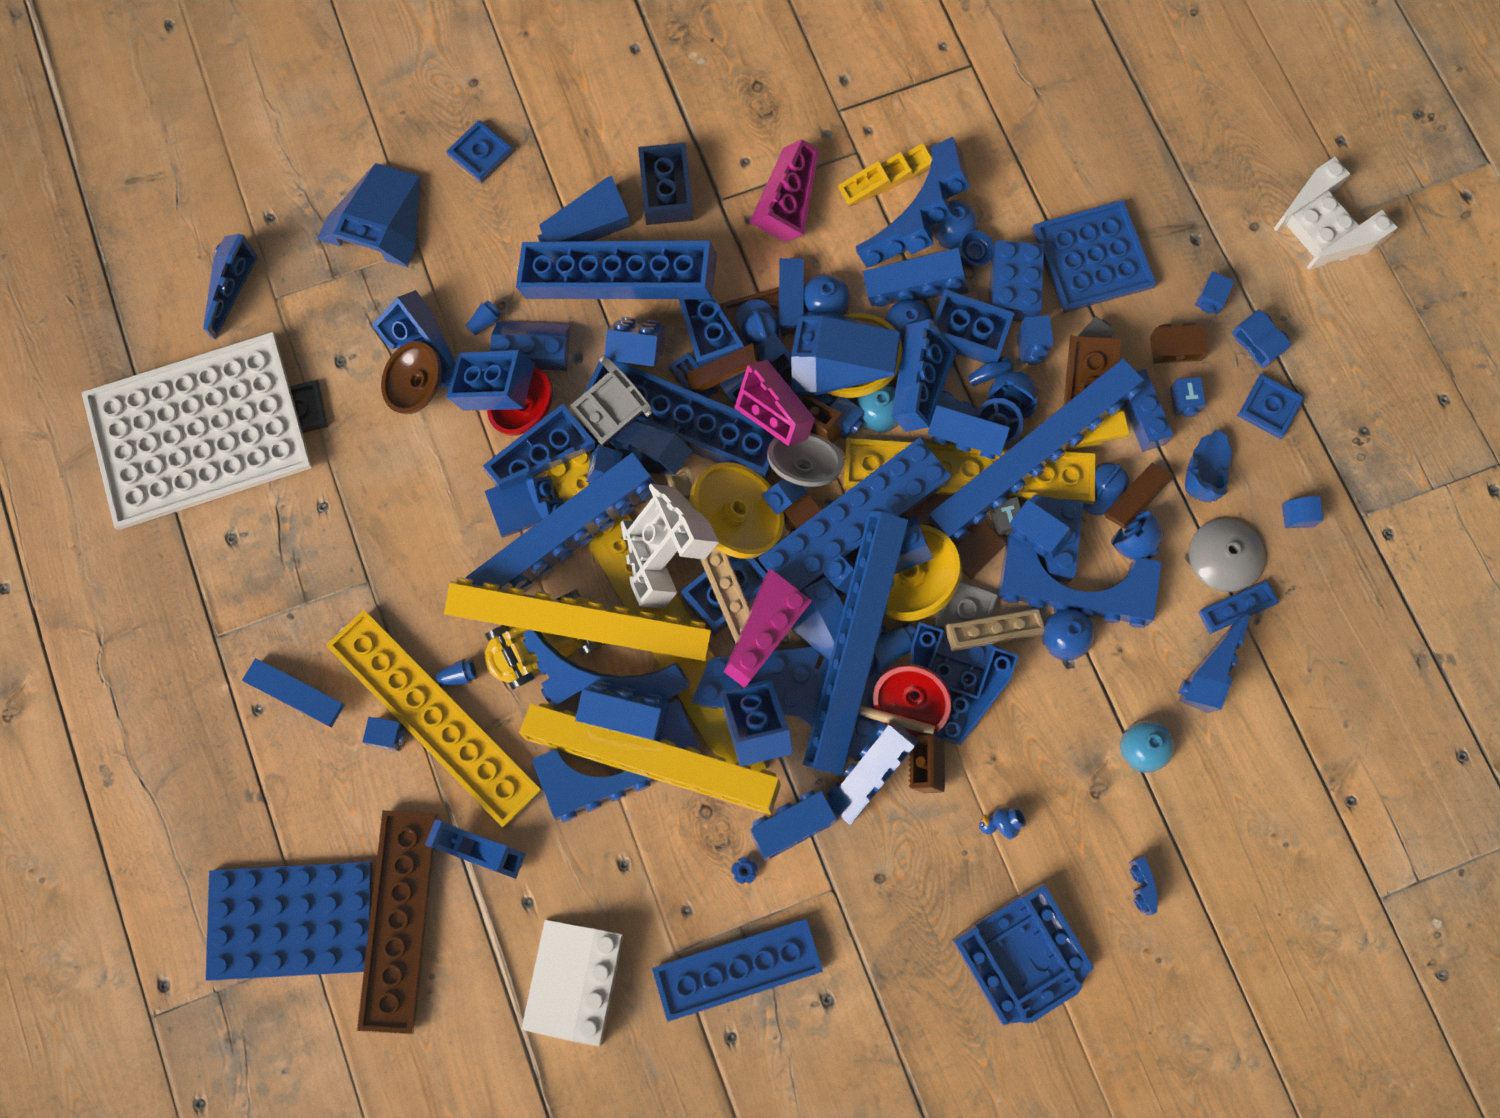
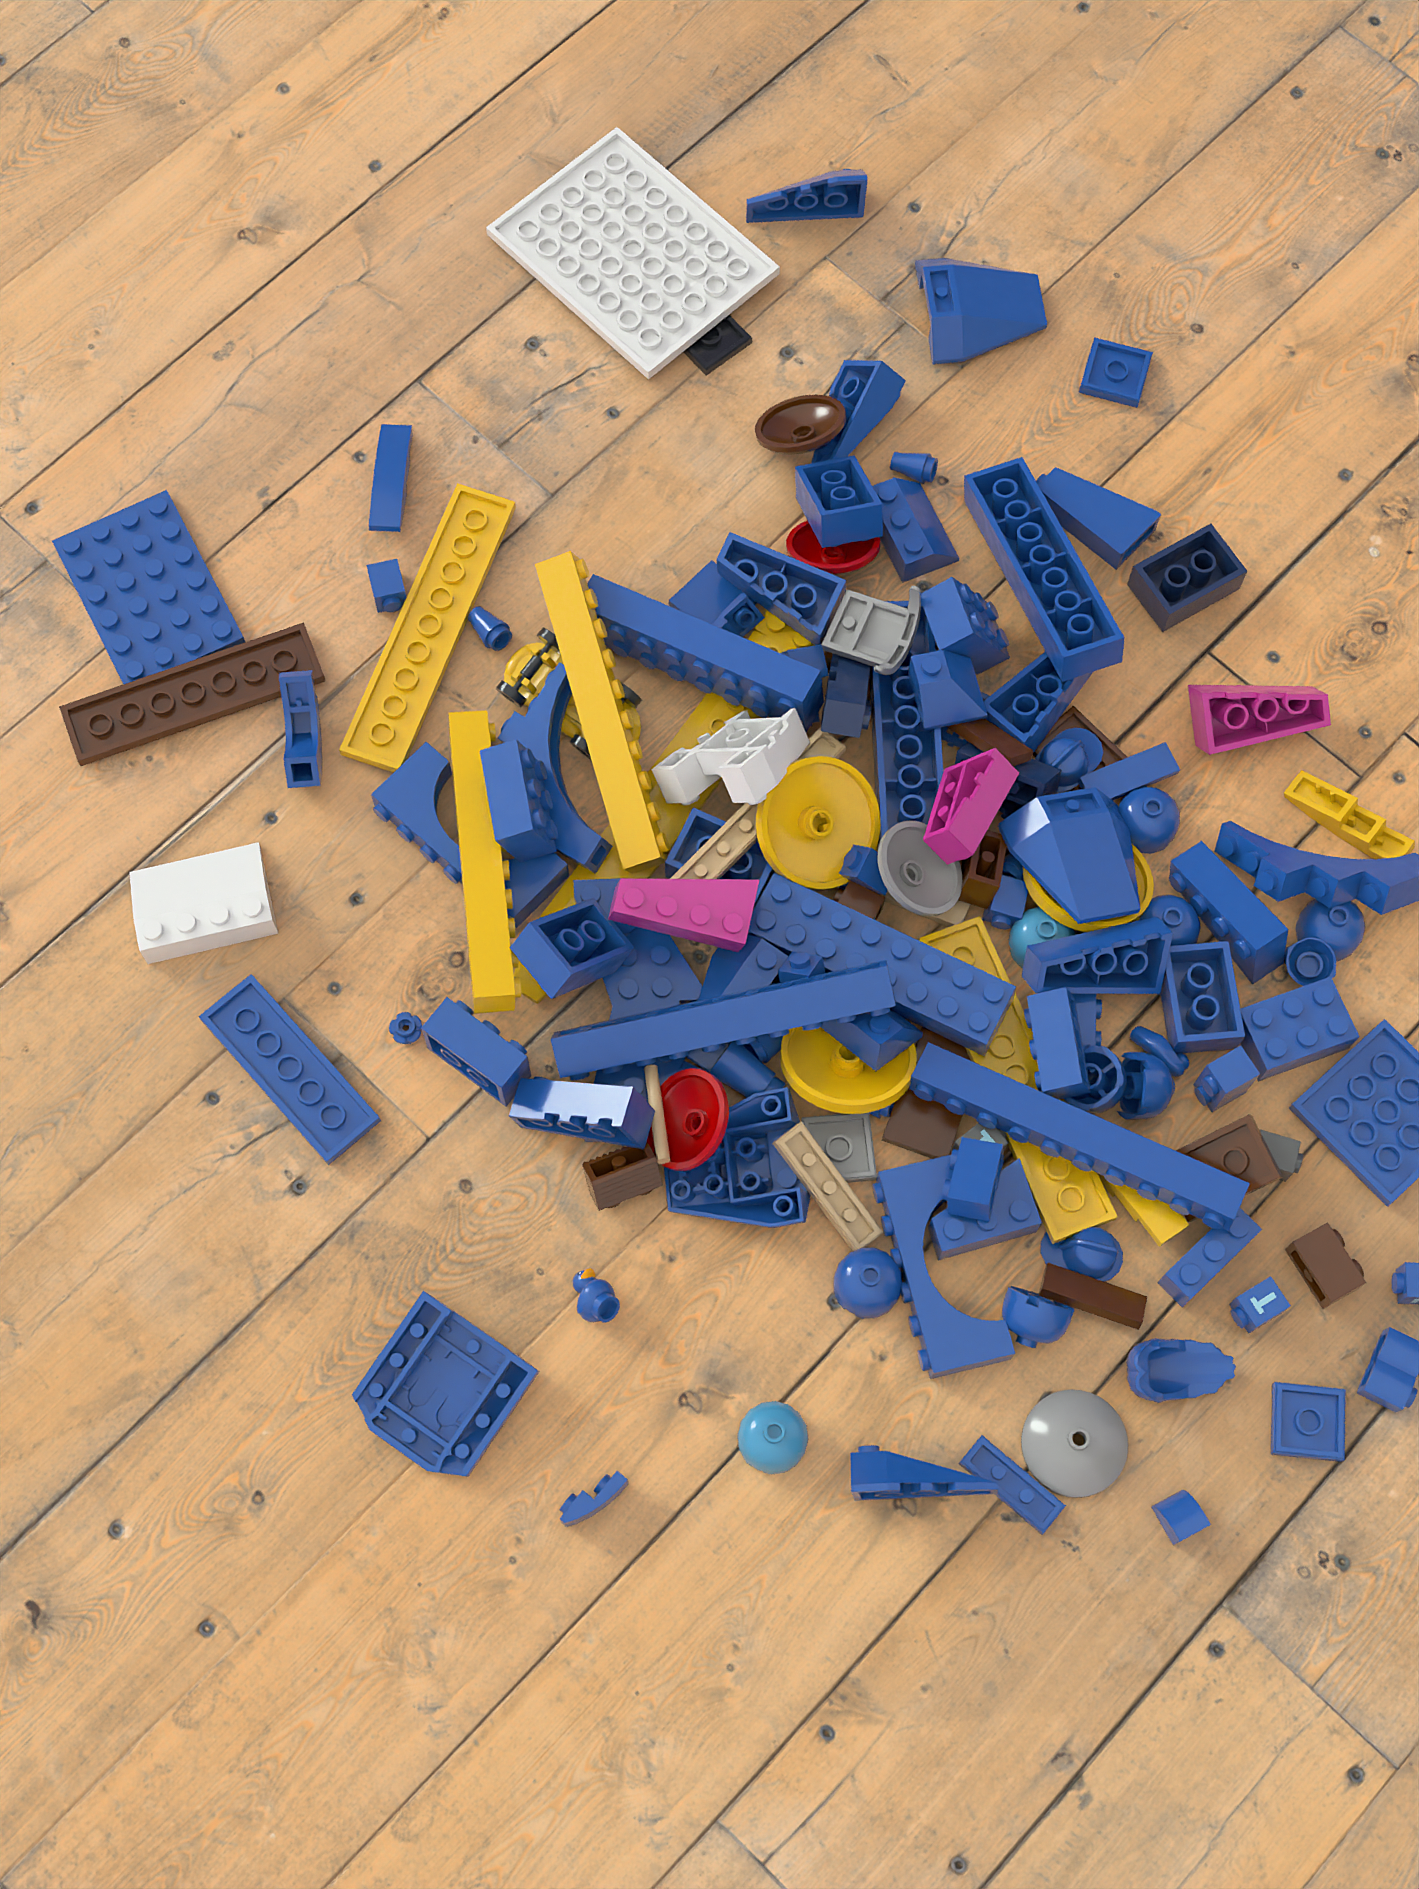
camera: 65 degrees right, 5 degrees down
(679, 378) = (945, 689): none -> blue slope

